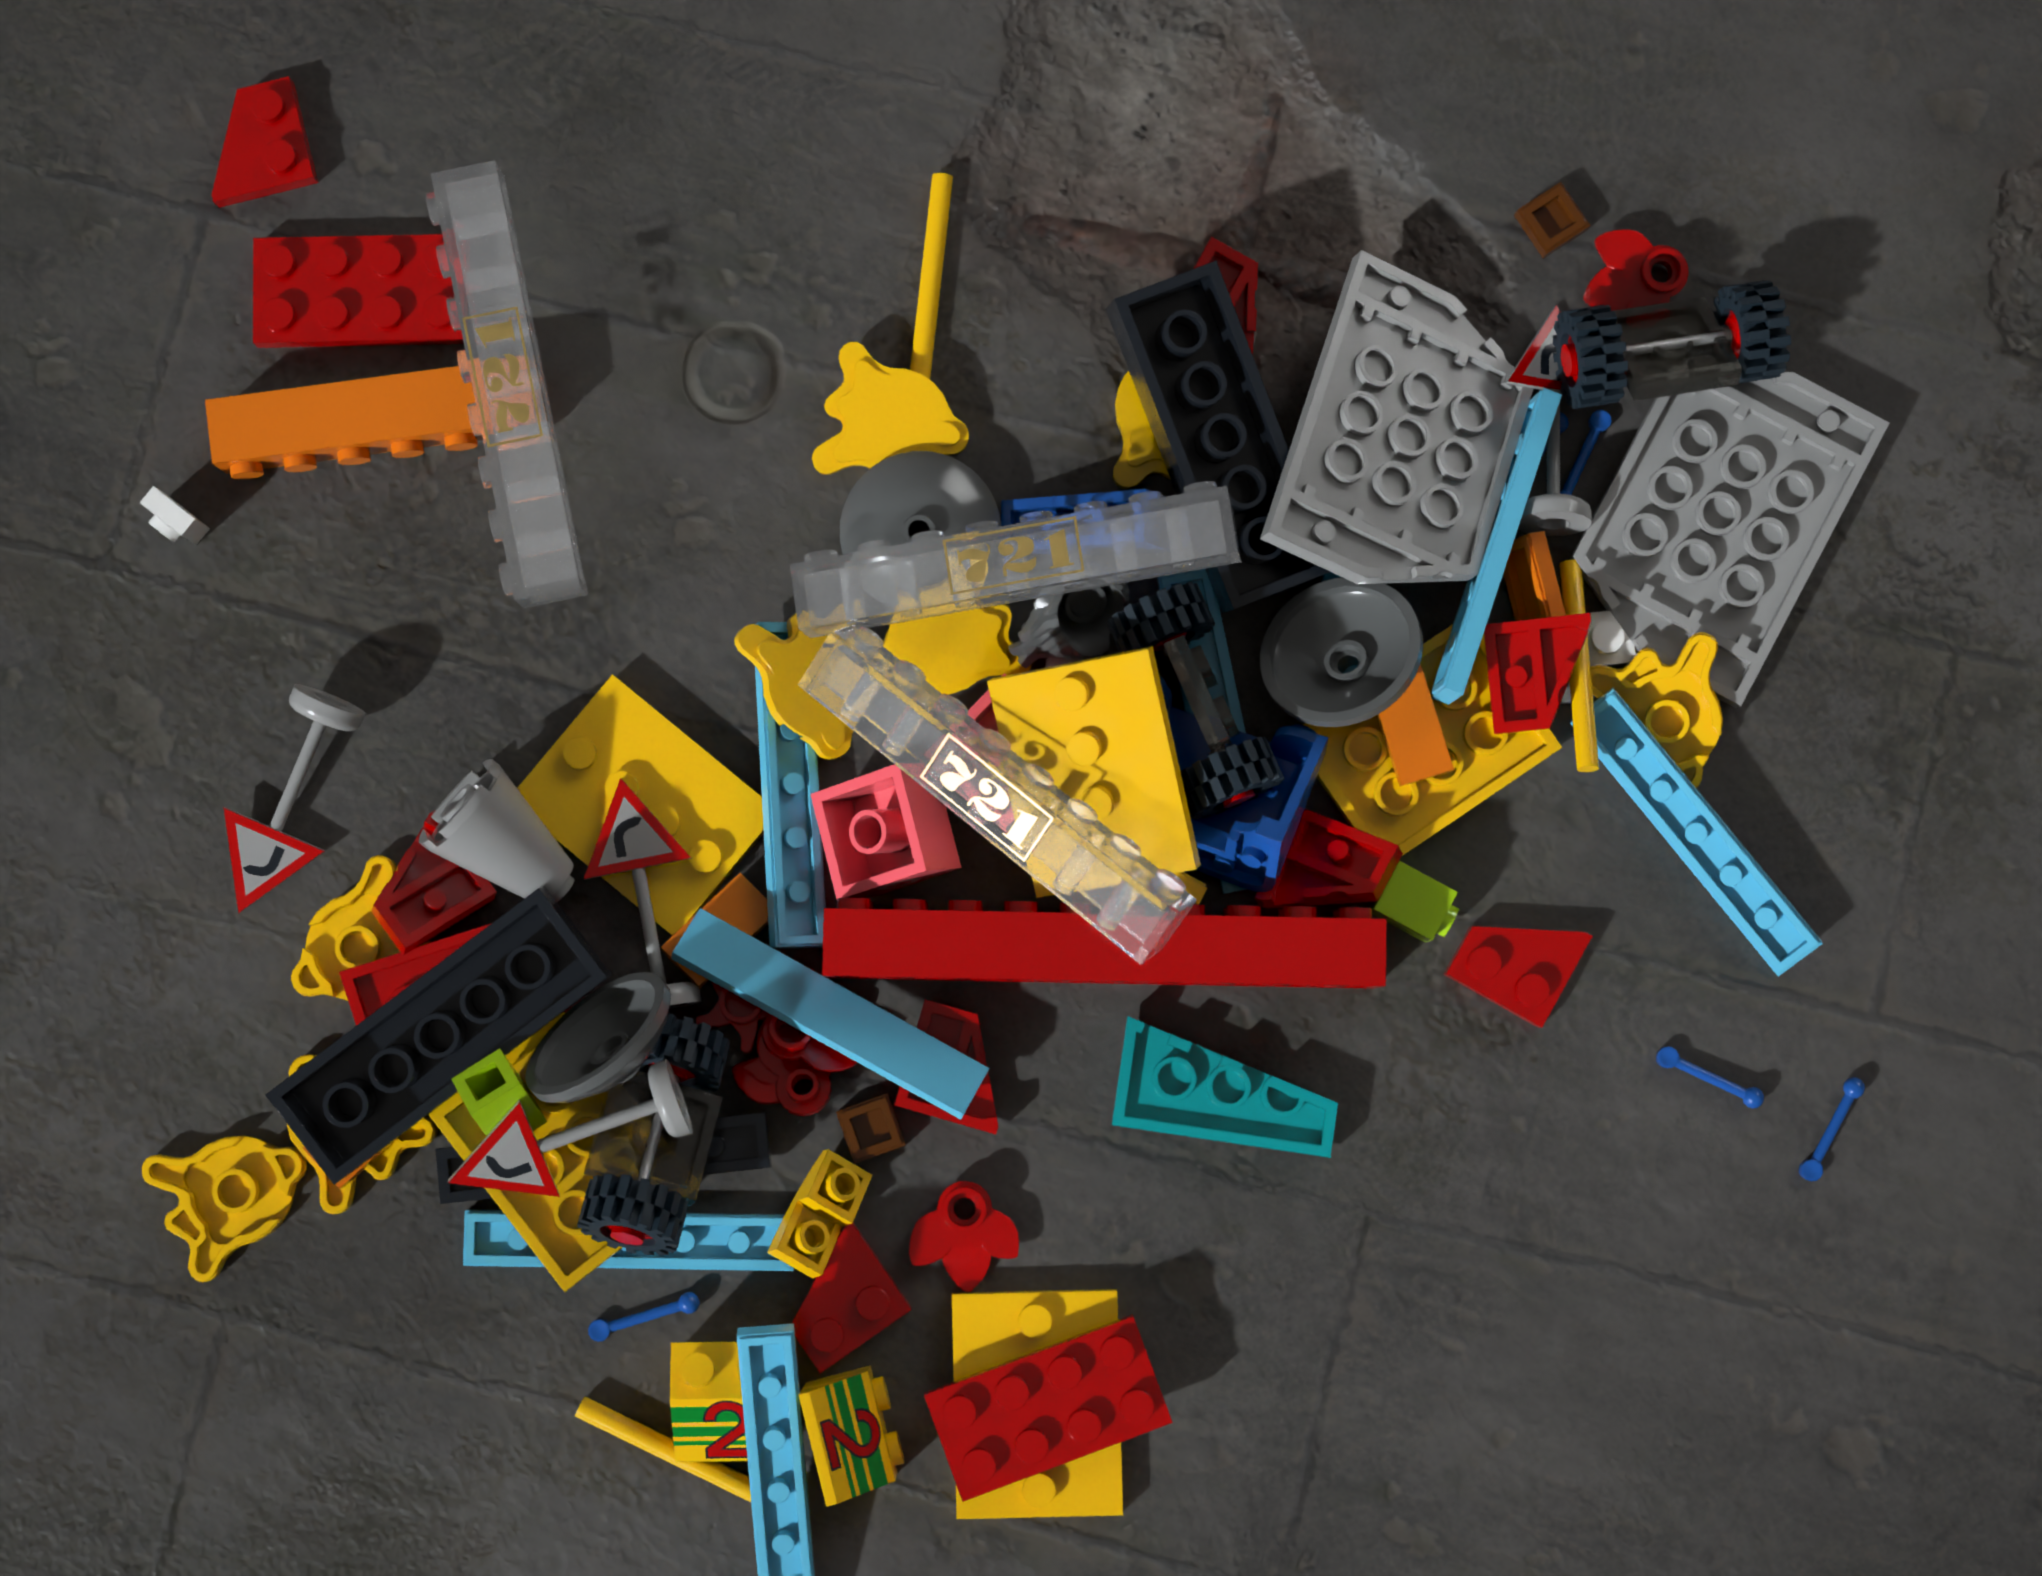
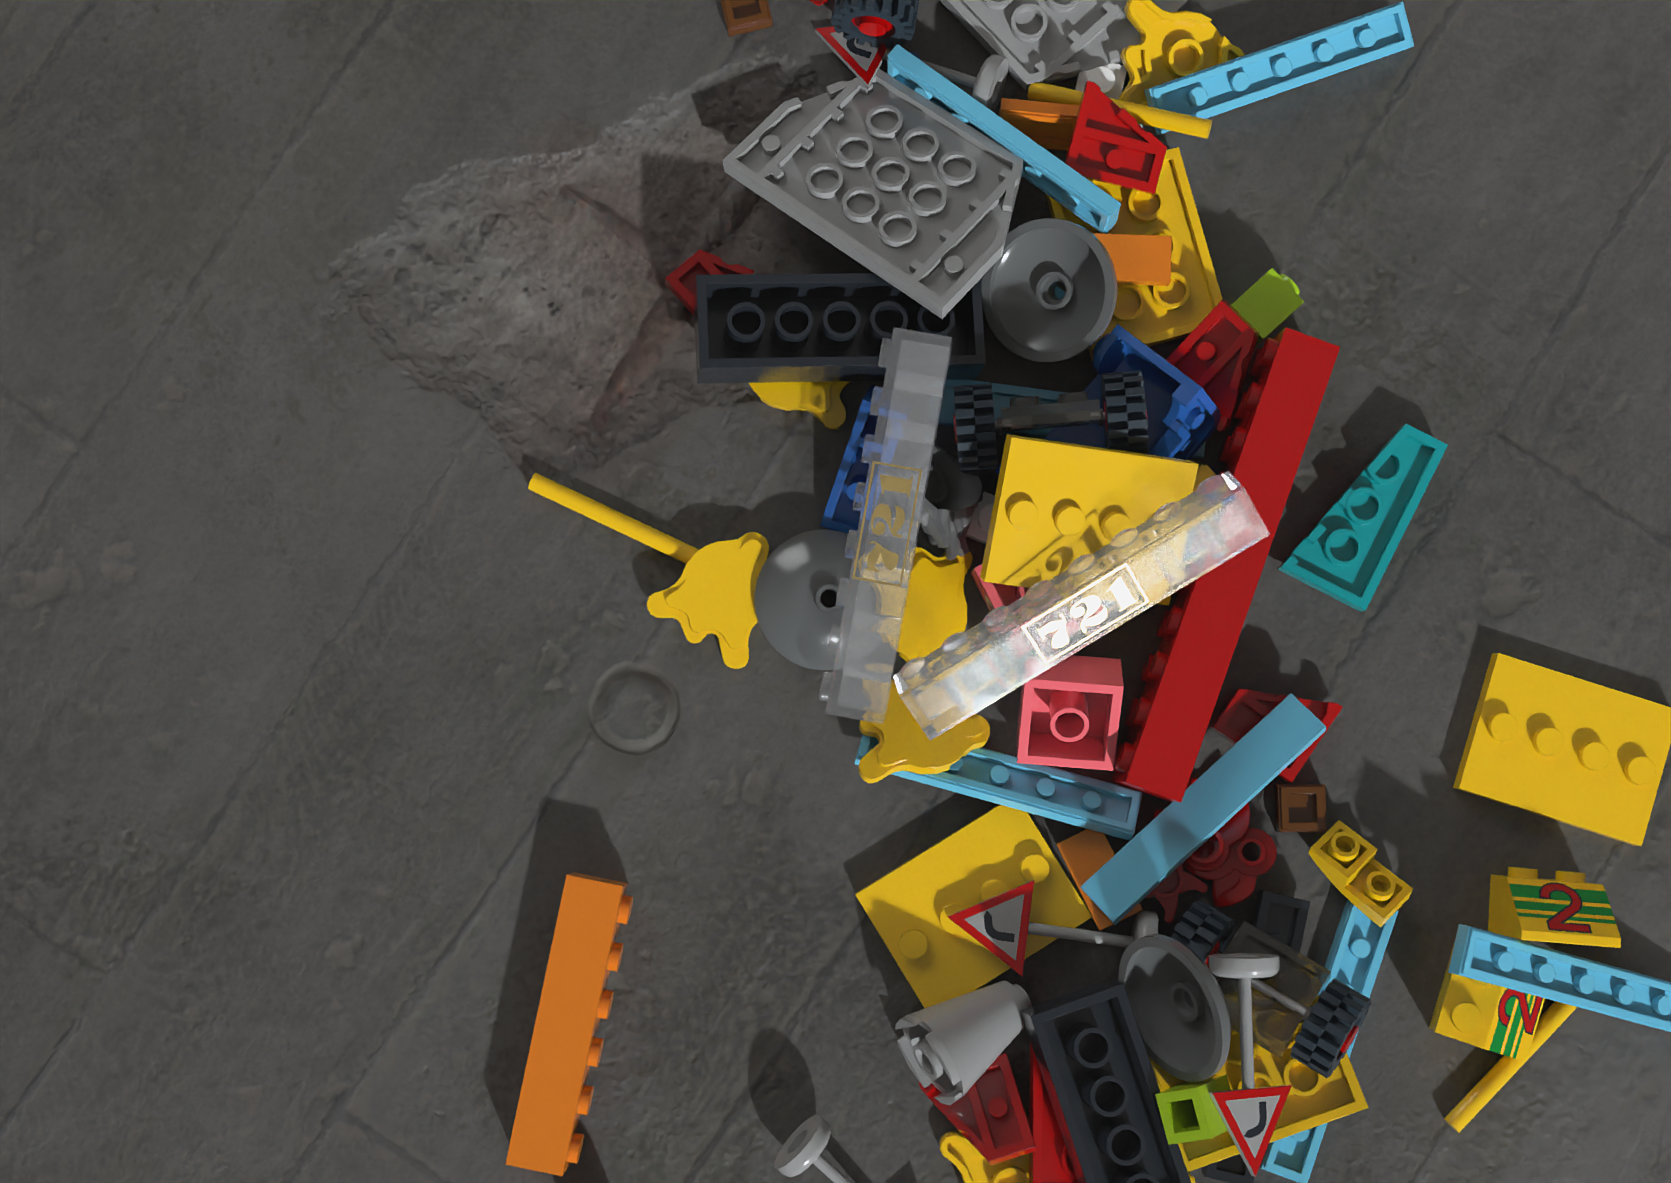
camera: 70 degrees left, 0 degrees up
(264, 145) = (299, 1040): red wing -> none
(350, 292) = (454, 998): red plate -> none
(507, 385) = (586, 899): clear brick -> none
(601, 1328) = (1392, 1086): blue hinge -> none
(847, 1302) = (1440, 875): red wing -> none
(962, 1242) = (1417, 761): red plate -> none
(1047, 1408) = (1580, 740): red plate -> none
(1518, 967) = (1339, 244): red wing -> none
(1598, 423) = (922, 30): blue hinge -> none
(1669, 1057) = (1449, 153): blue hinge -> none
(1811, 1168) = (1570, 75): blue hinge -> none

